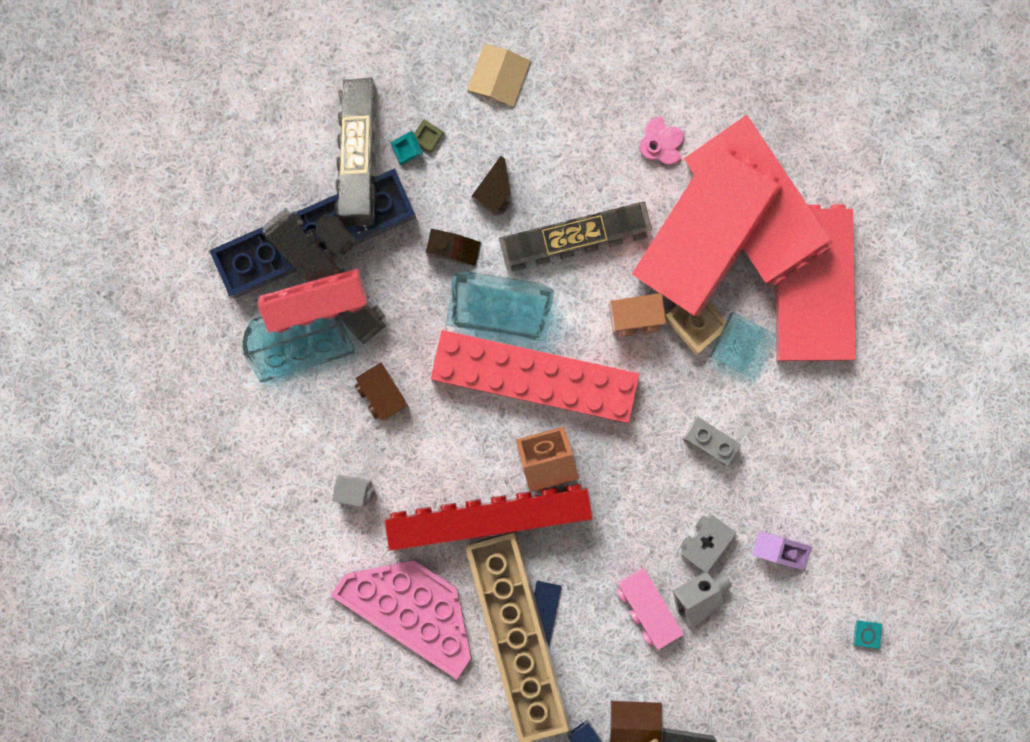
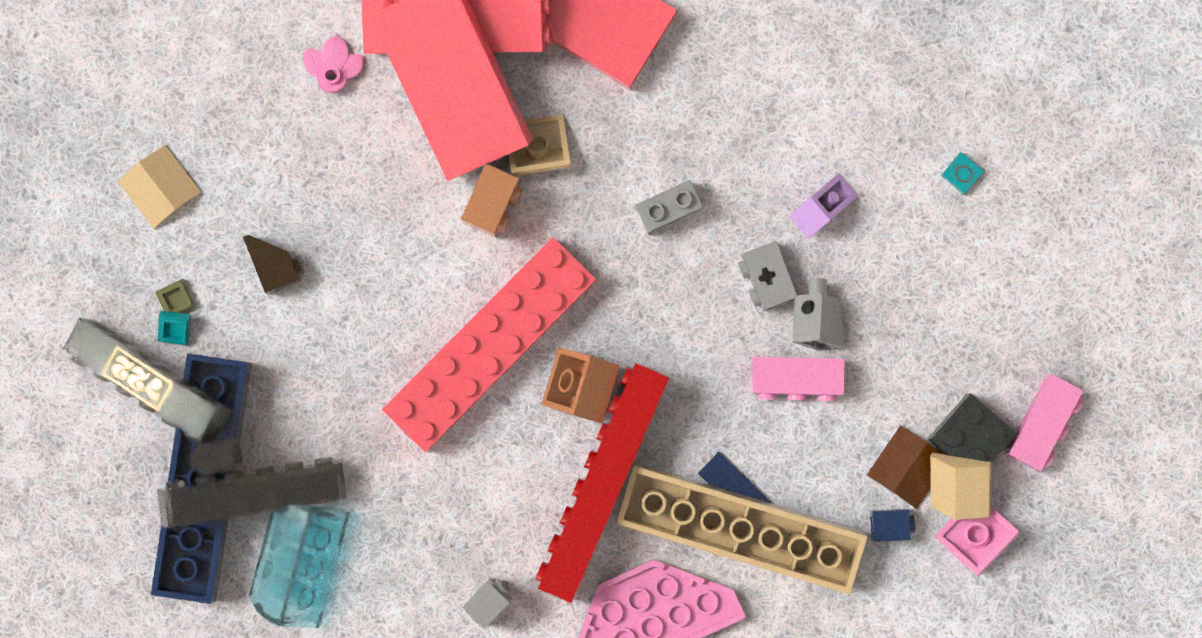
camera: 55 degrees left, 0 degrees up
(313, 301) = (269, 521): coral brick -> none
(381, 392) = (406, 511): reddish brown brick -> none
(452, 247) = (305, 344): dark brown slope -> none
(500, 305) = (395, 334): clear light blue windscreen -> none
(575, 235) = (372, 213): clear smoke brick -> none
(742, 345) = (591, 113): clear light blue tile -> none

